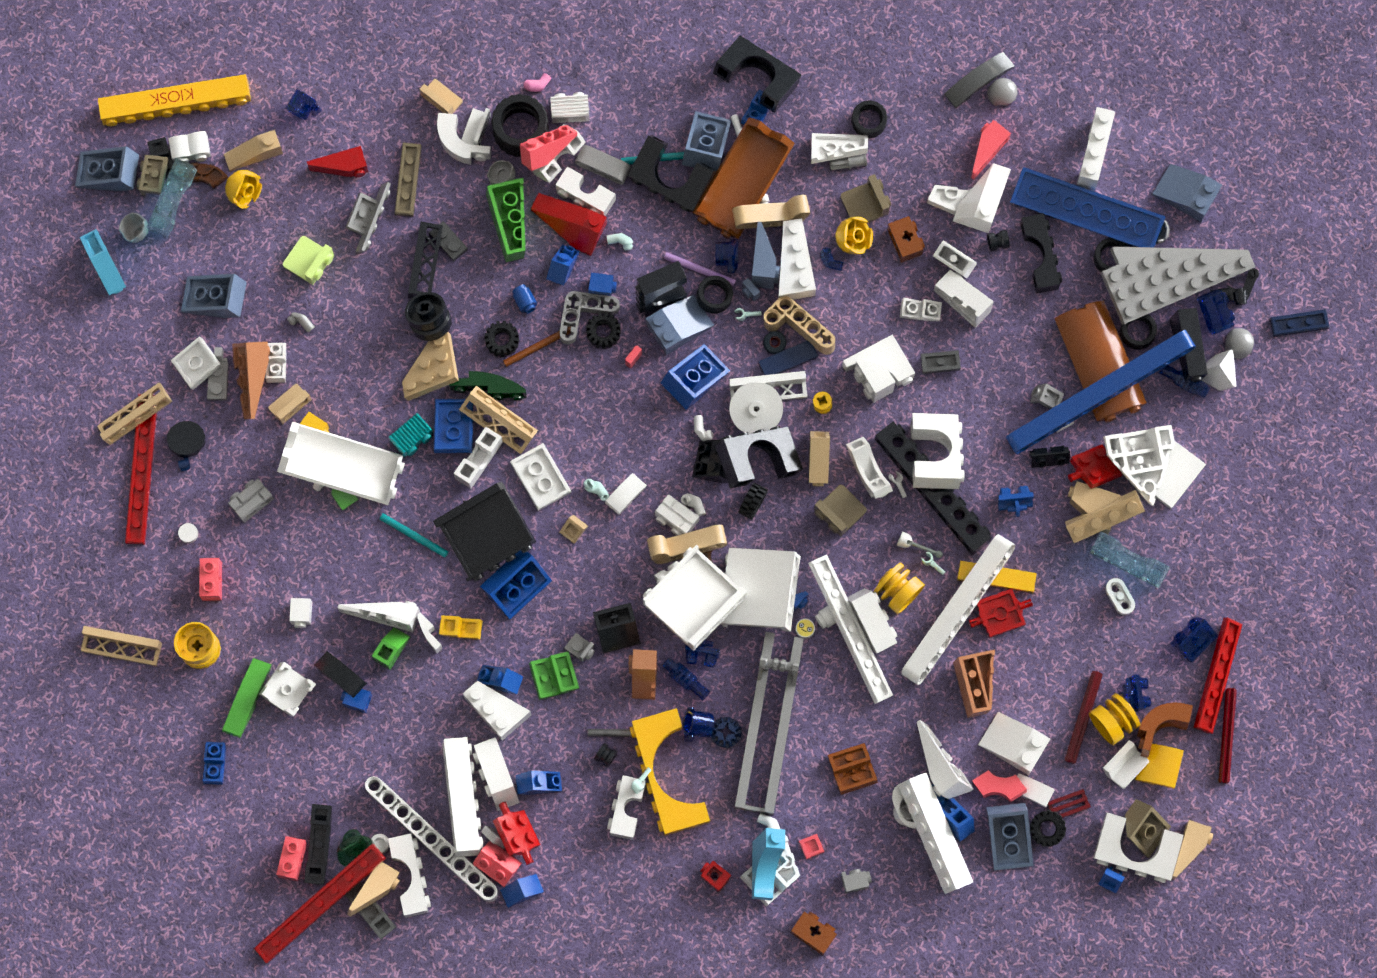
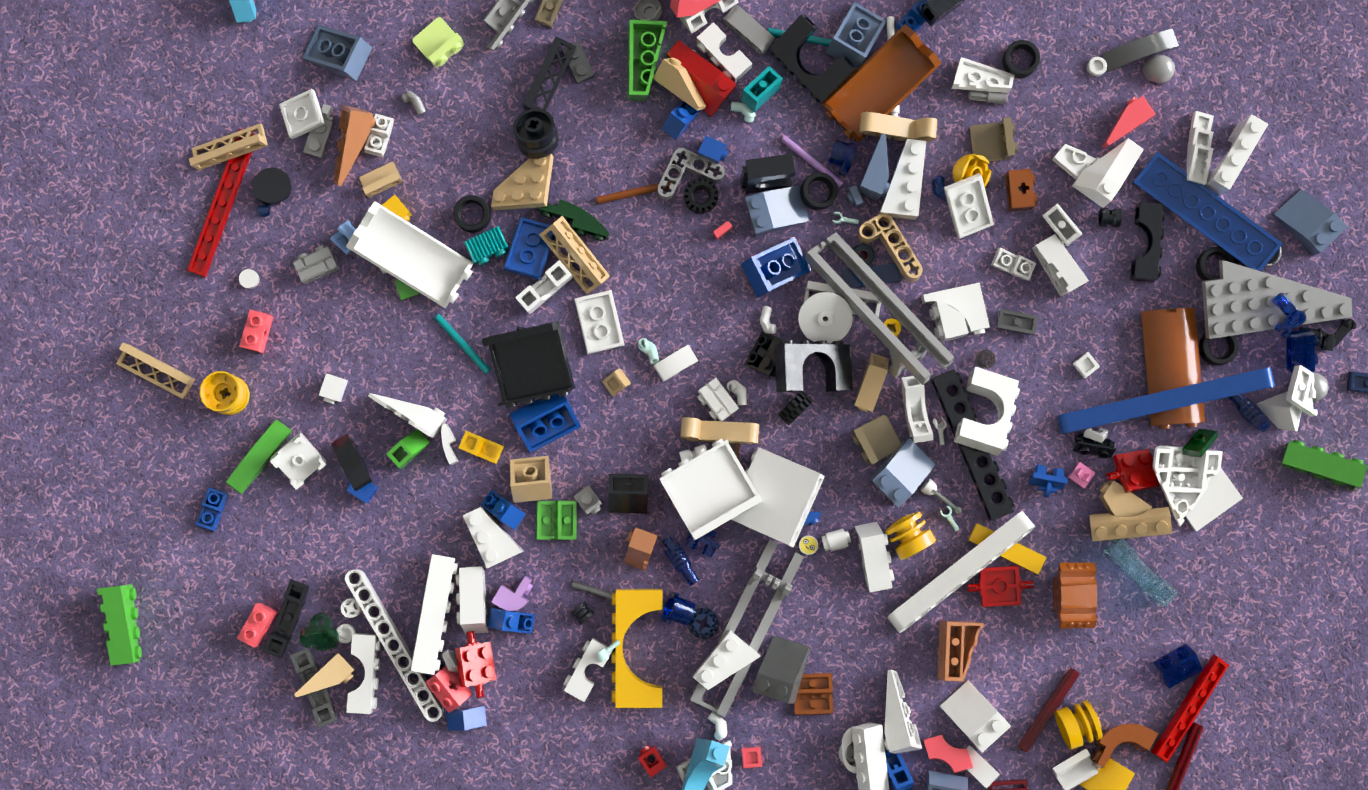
camera: 15 degrees right, 10 degrees up
(157, 896) = (121, 624): none -> bright green wedge
(270, 466) = (343, 236): none -> light blue window
(319, 903) = (271, 676): red tile -> none
(378, 813) = (348, 606): none -> white wheel
(385, 396) = (486, 213): none -> black tyre
(501, 328) = (601, 164): black tyre -> none
(518, 643) = (530, 479): none -> tan slope
(524, 299) = (634, 142): blue brick -> none
(534, 762) = (511, 600): none -> lavender brick
(548, 229) = (678, 81): none -> tan slope
(631, 215) = (761, 89): none -> teal brick
(758, 753) = (725, 659): none -> white wedge
(815, 753) = (782, 670): none -> dark grey slope
(838, 420) = (900, 355): none -> light grey piece
(850, 629) = (851, 561): white tile -> none
(861, 267) = (969, 205): none -> white tile
(873, 533) = (902, 472): none -> sand blue slope
(921, 404) = (985, 359): none -> clear smoke plate
(943, 106) = (1096, 66): none -> white tile
(1018, 383) = (1086, 365): none -> white tile
(1046, 396) = (1109, 386): light grey bracket -> none
(1046, 487) = (1081, 475): none -> bright pink tile
(1048, 445) = (1099, 435): none -> white tile
(1062, 152) = (1199, 148): none -> white slope
(1074, 598) = (1075, 595): none -> dark orange slope
(1120, 597) = (1120, 603): white plate -> none
(1133, 692) = (1104, 702): clear blue hips -> none
(1147, 423) = (1199, 442): none -> dark green plate
(1194, 362) = (1264, 356): black slope -> none
(1198, 280) = (1294, 316): none -> clear blue bar
(1226, 346) = (1302, 390): none -> white wing
(1271, 410) = (1324, 465): none -> bright green wedge

